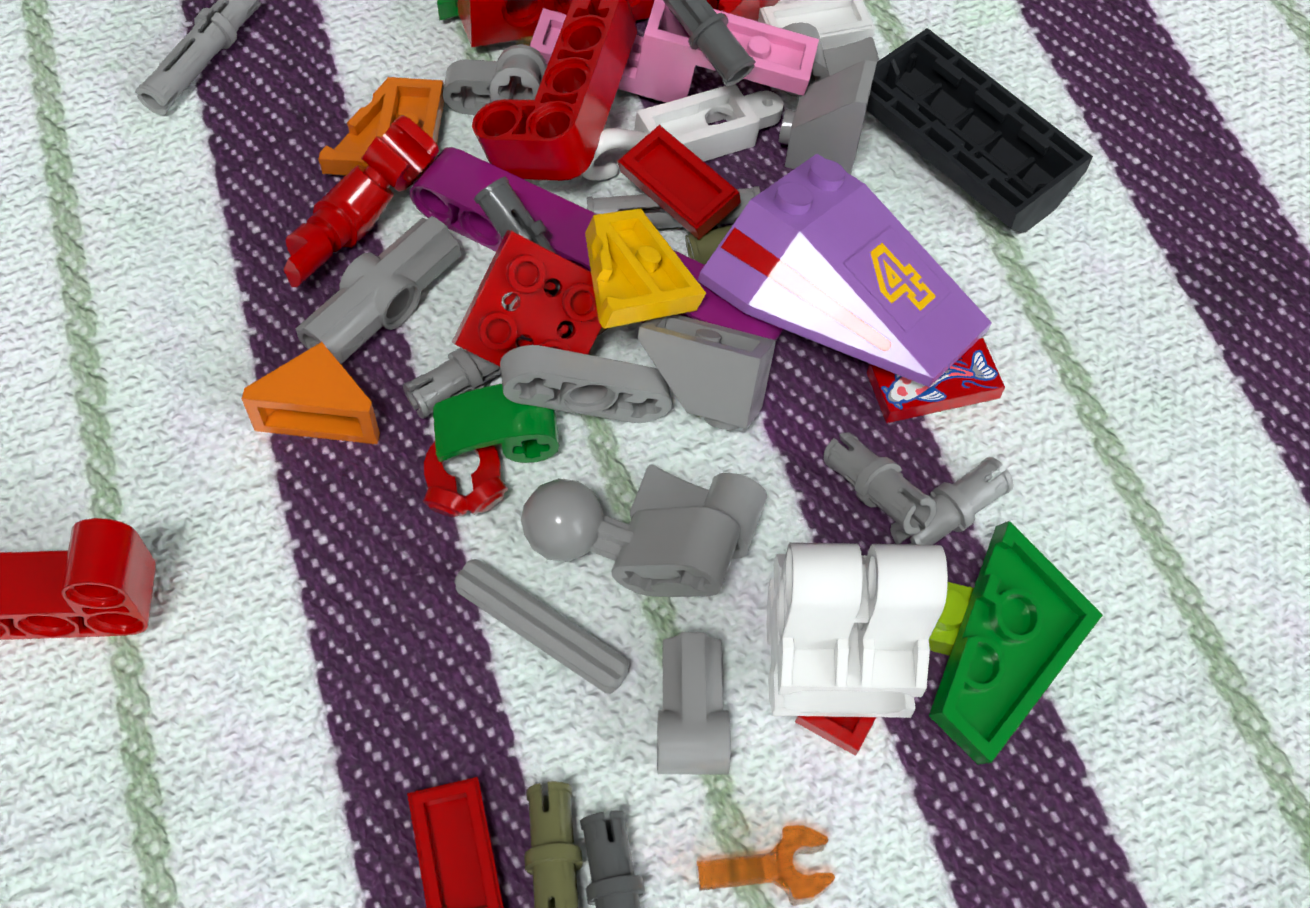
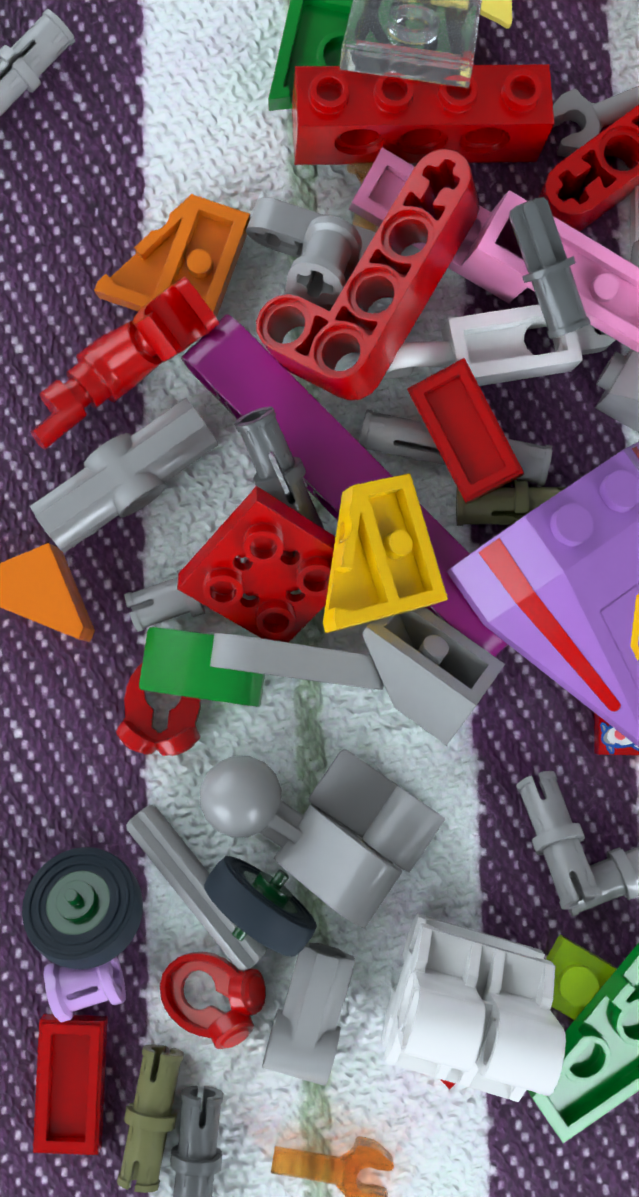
camera: 20 degrees right, 25 degrees up
(429, 661) = (82, 908): none -> black wheel
(460, 719) = (81, 988): none -> lavender bush
(610, 748) = (243, 988): none -> red piece
(611, 602) = (260, 906): none -> black wheel

